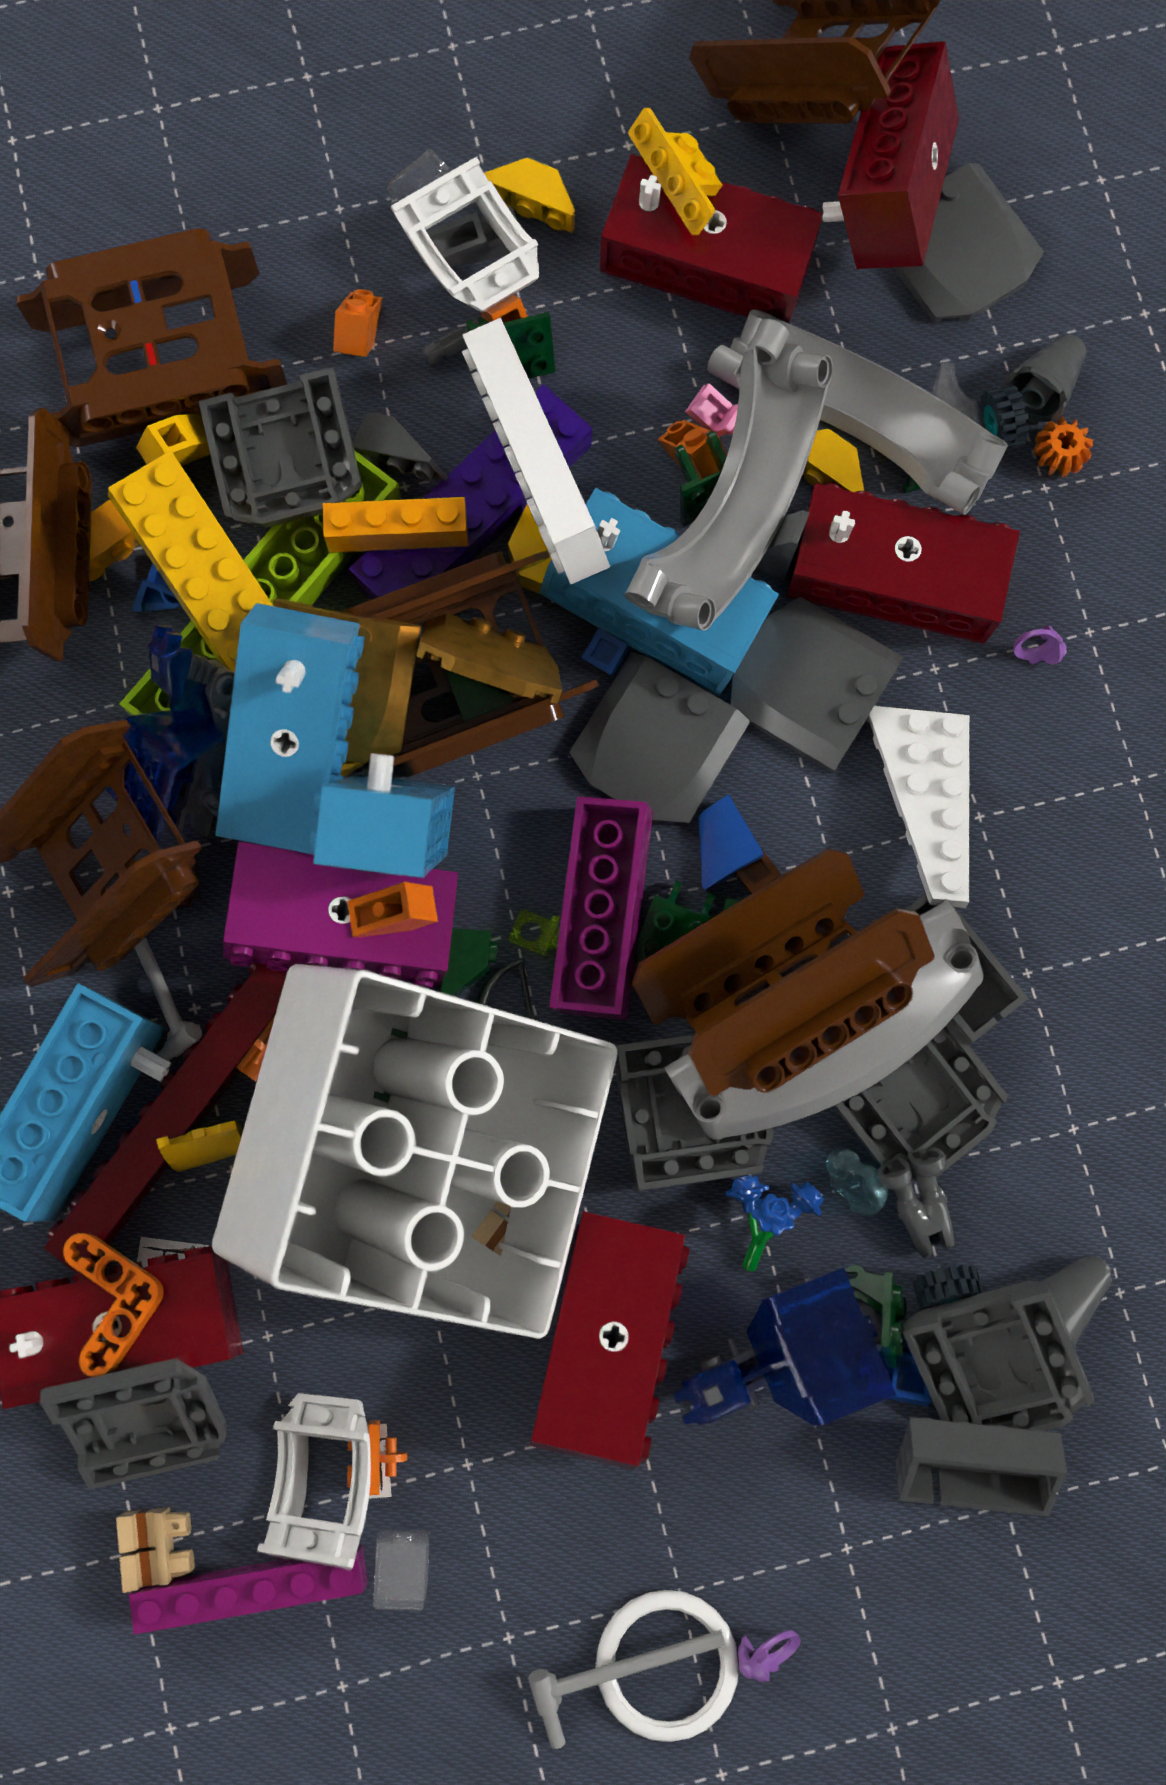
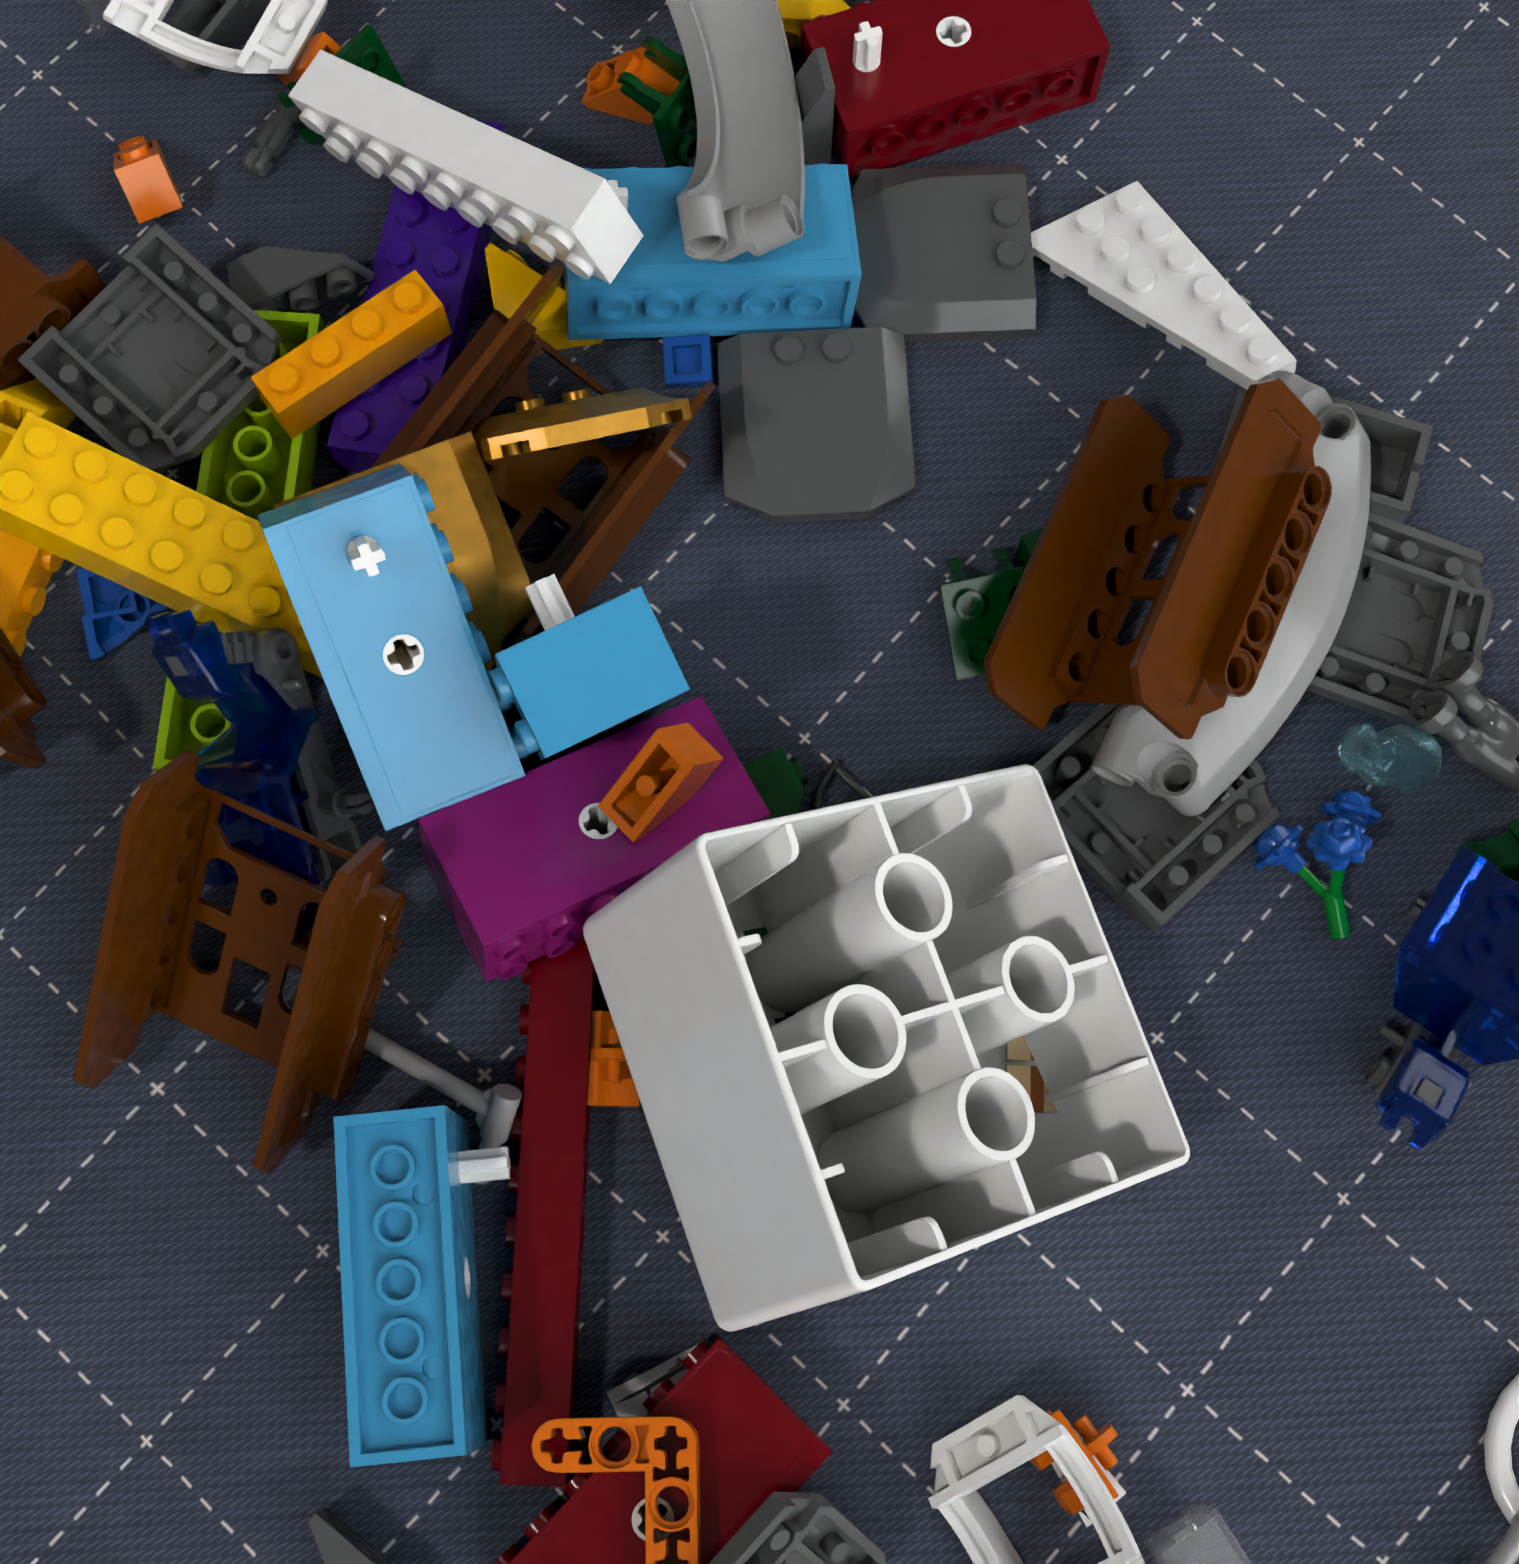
camera: 30 degrees left, 5 degrees down
(201, 1146) = (612, 1225): yellow slope -> none
(474, 697) = (572, 496): dark green slope -> none
(547, 939) = (847, 711): clear neon green bracket -> none
(598, 1395) = (1267, 1122): dark red piece -> none
(601, 908) = (890, 638): magenta brick -> none
(713, 411) = (623, 30): bright pink bracket -> none
(724, 843) = (972, 481): blue slope -> none
(758, 874) = (1030, 492): reddish brown plate -> none
(1051, 651) = (1174, 61): medium lavender piece -> none

